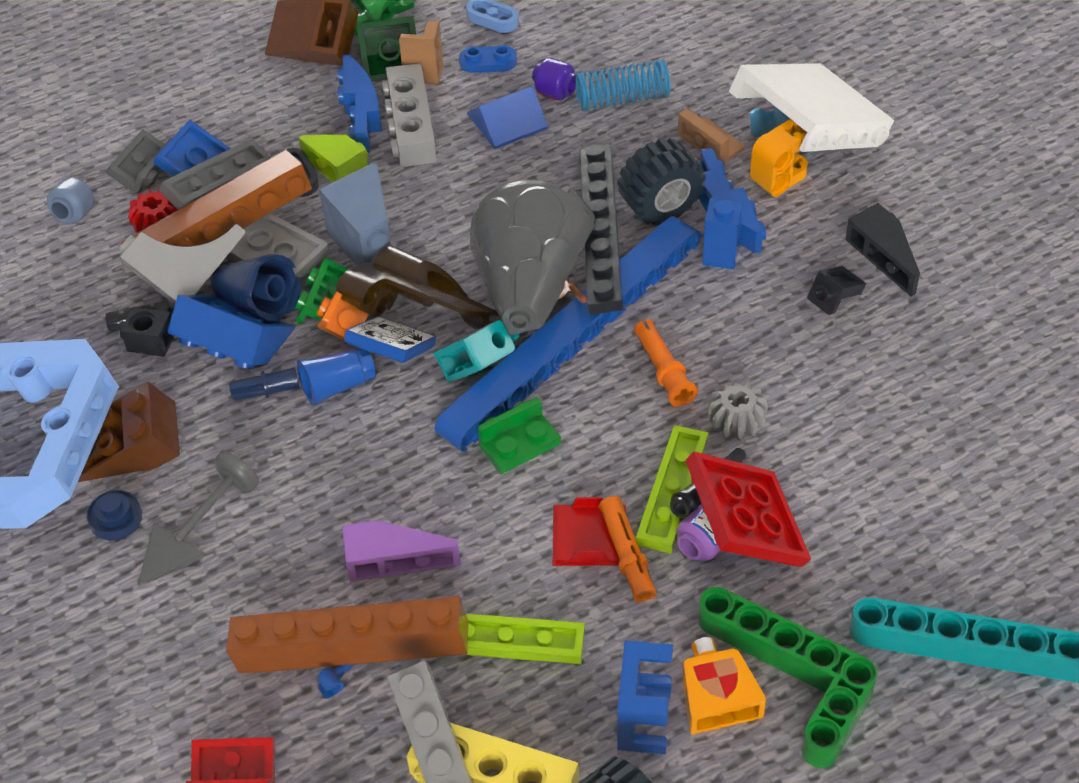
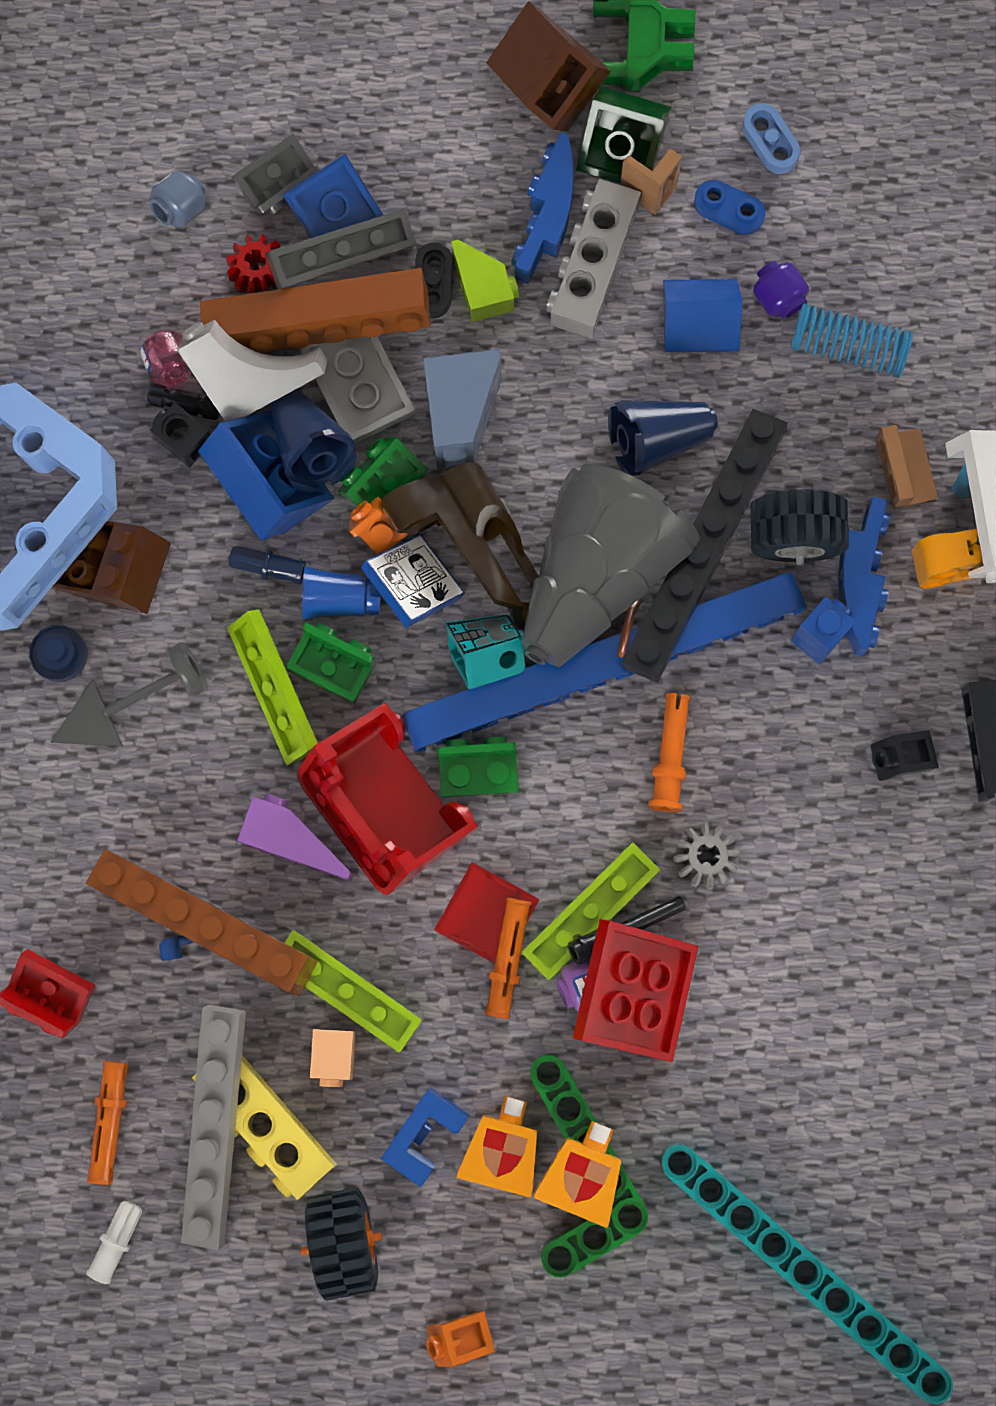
camera: 30 degrees right, 30 degrees up
(110, 291) = (163, 360): none -> clear pink head
(316, 457) = (272, 686): none -> lime plate
(355, 417) = (332, 662): none -> green bracket
(448, 497) = (381, 801): none -> red windscreen
(505, 170) = (657, 431): none -> dark blue cone
(524, 687) = (332, 1056): none -> light nougat brick
(800, 652) = (583, 1177): none -> light orange torso

